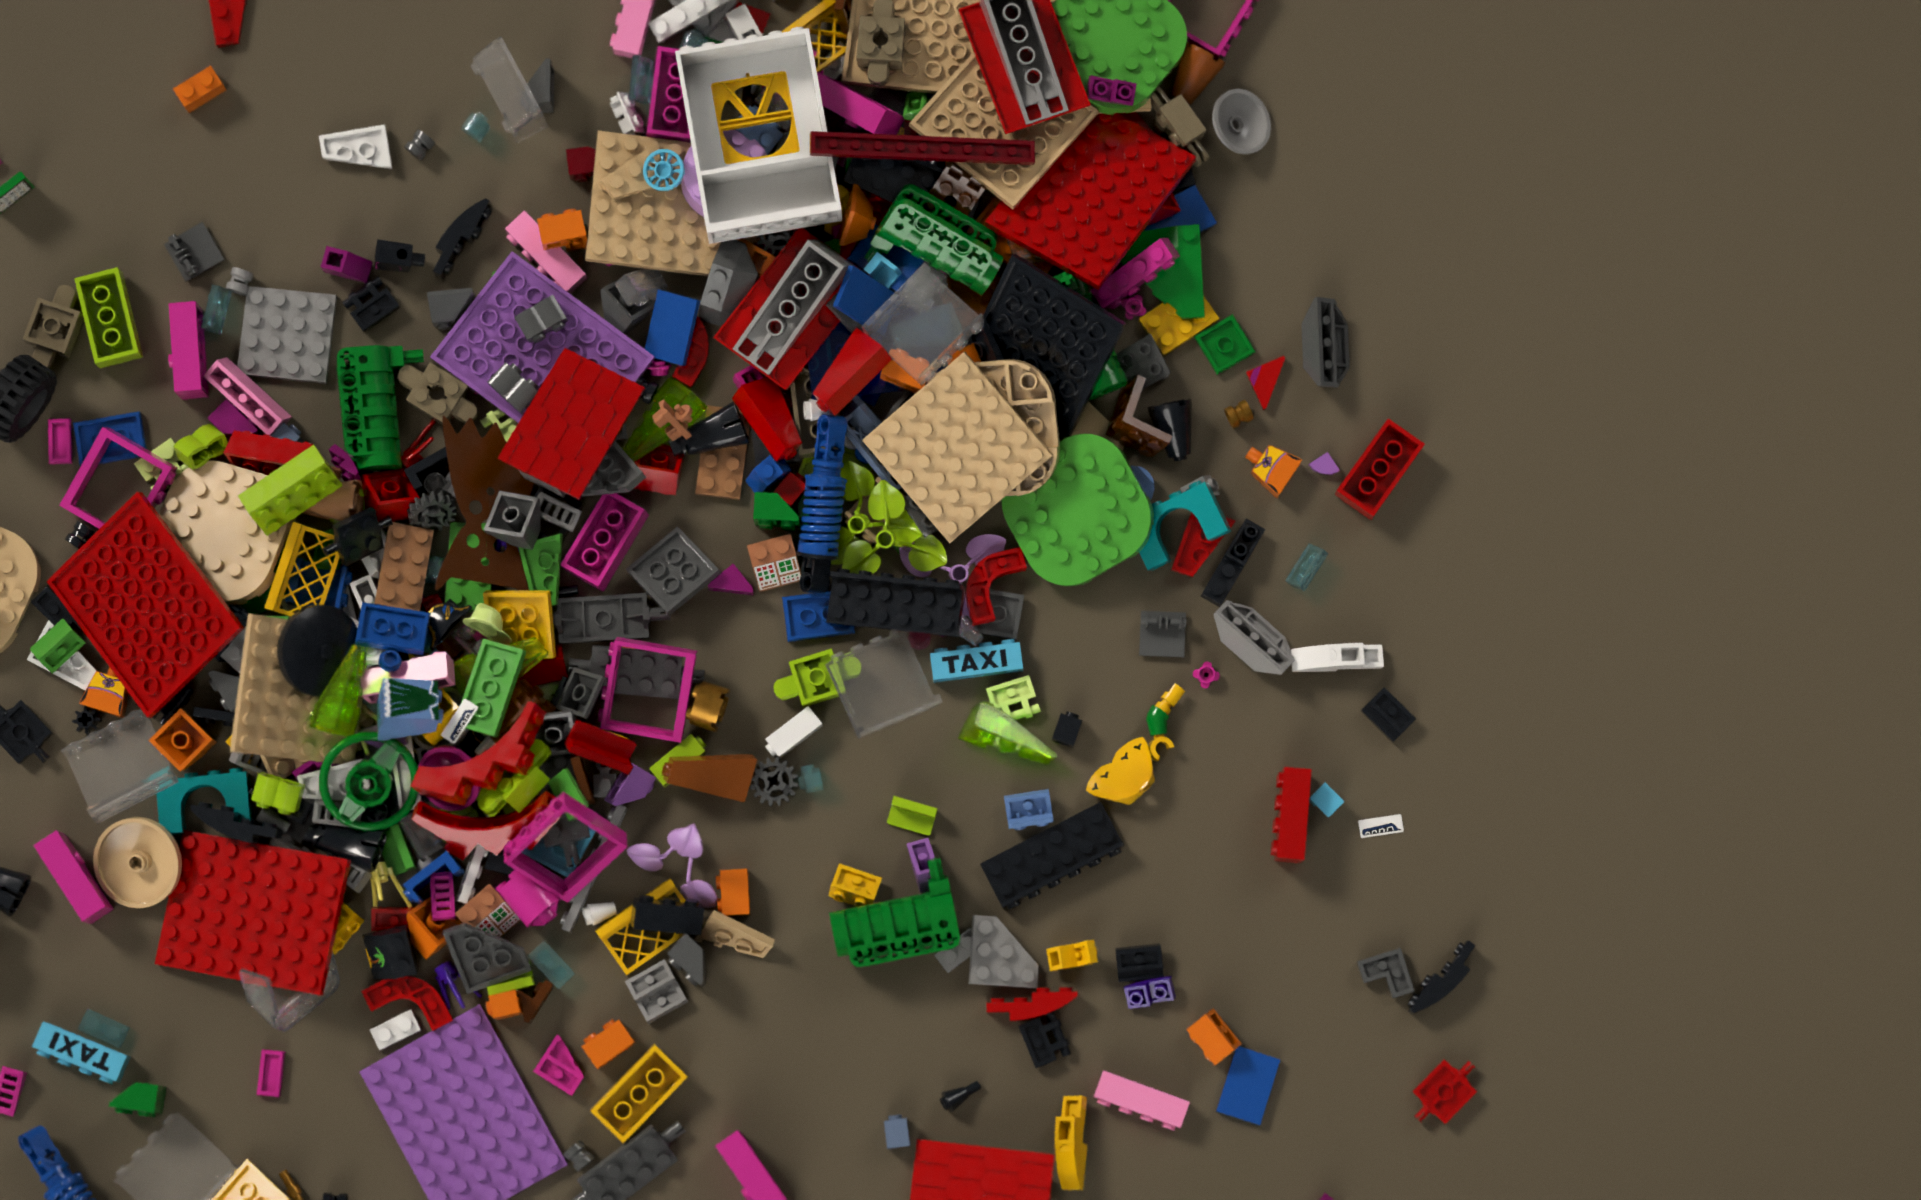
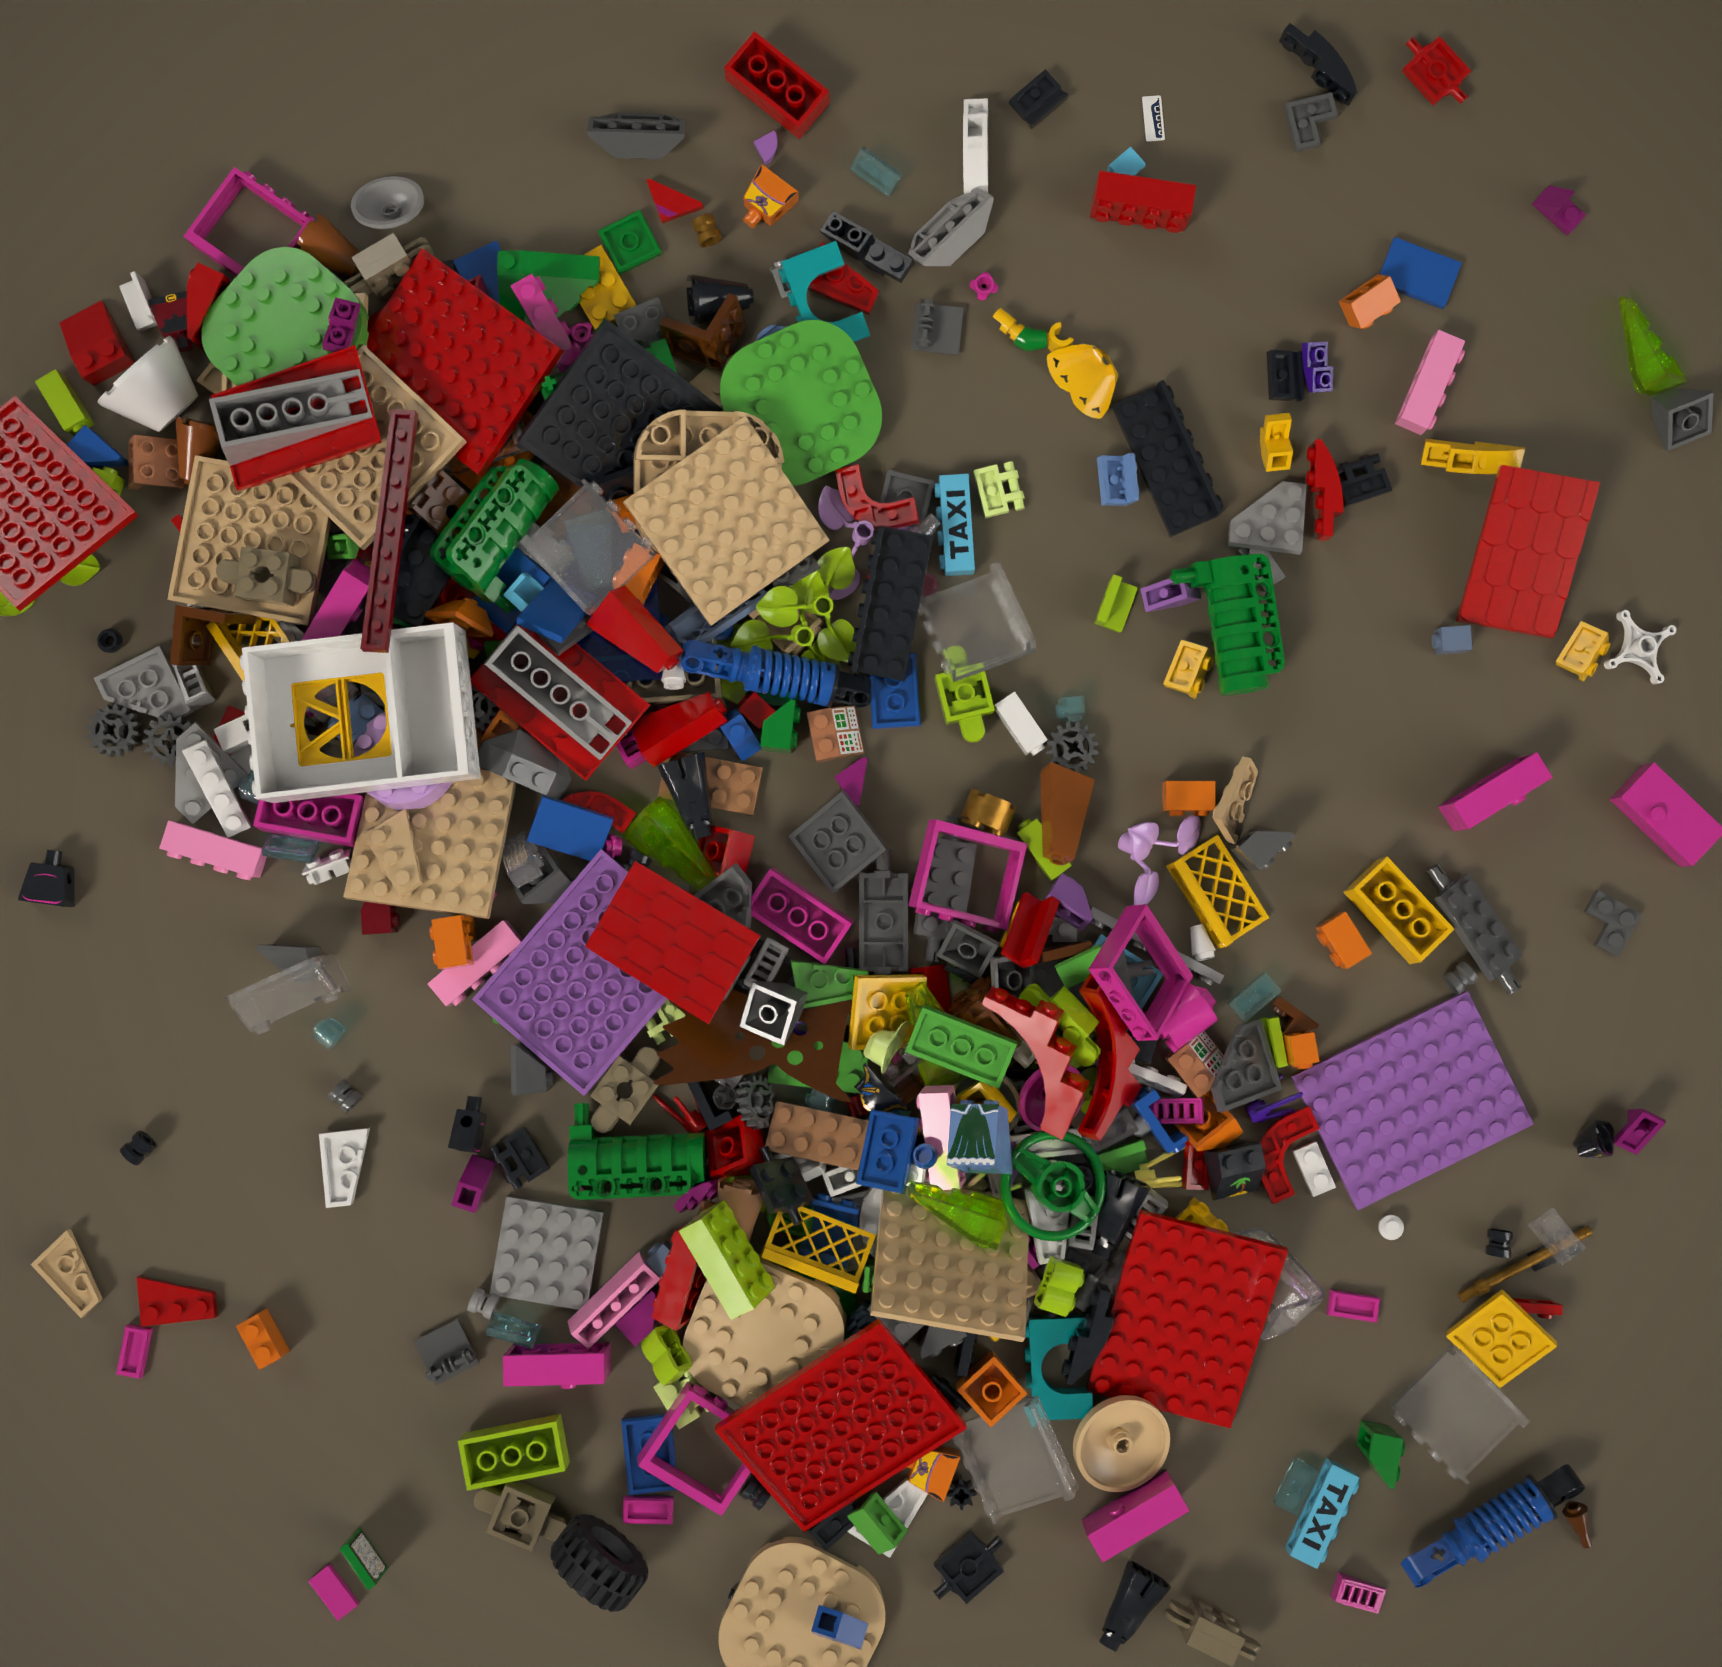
camera: 85 degrees left, 5 degrees up
(314, 647) = (907, 1239): black dish -> none
(344, 1103) = (1391, 1227): none -> white plate
(459, 721) = (996, 1082): white sticker -> none
(464, 228) = (442, 1051): black slope -> none
(513, 387) = (625, 1004): dark grey brick -> none
(541, 319) = (551, 969): dark grey brick -> none
(560, 1067) = (1364, 993): dark pink wing -> none
(656, 991) = (1288, 886): light grey slope -> none
(663, 170) = (393, 824): medium azure wheel -> none
(667, 915) = (1213, 868): black brick -> none
(678, 418) = (672, 827): nougat hips -> none
(954, 1098) = (1417, 577): black cone -> none
(995, 728) = (1029, 506): clear neon green wedge -> none
(1067, 729) = (1034, 433): black brick -> none

